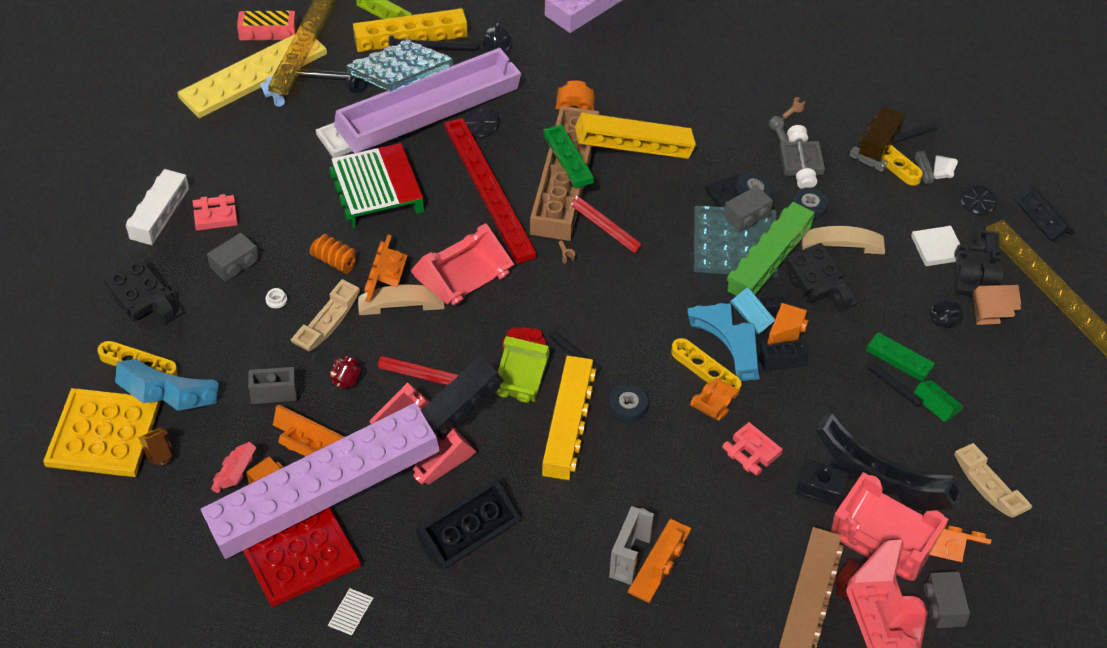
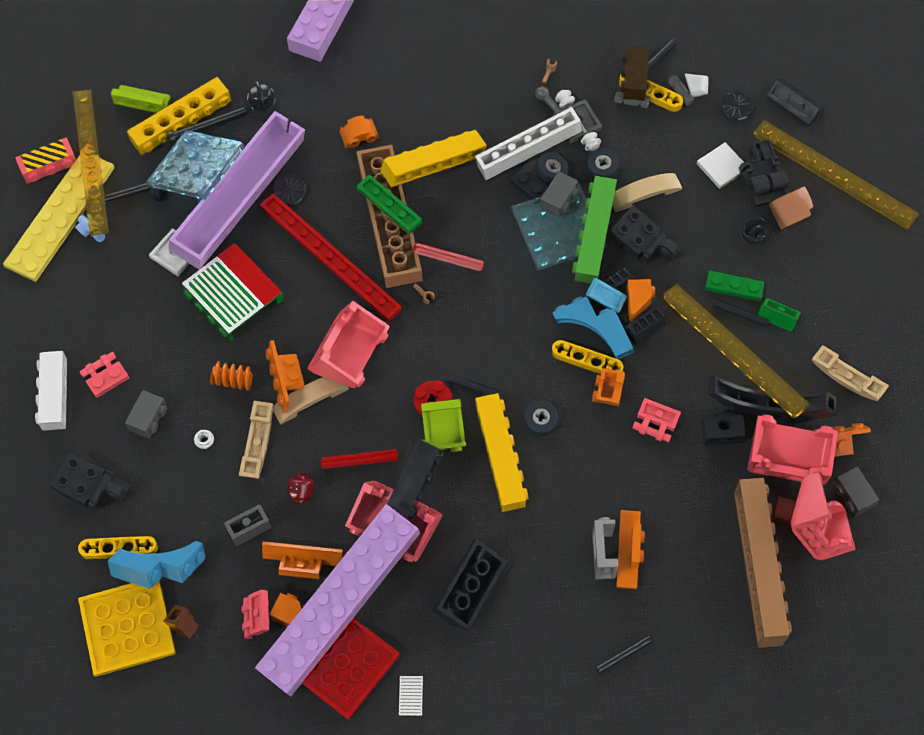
camera: 20 degrees left, 15 degrees up
(739, 156) = (528, 143): none -> white brick
(871, 413) = (736, 351): none -> clear yellow plate

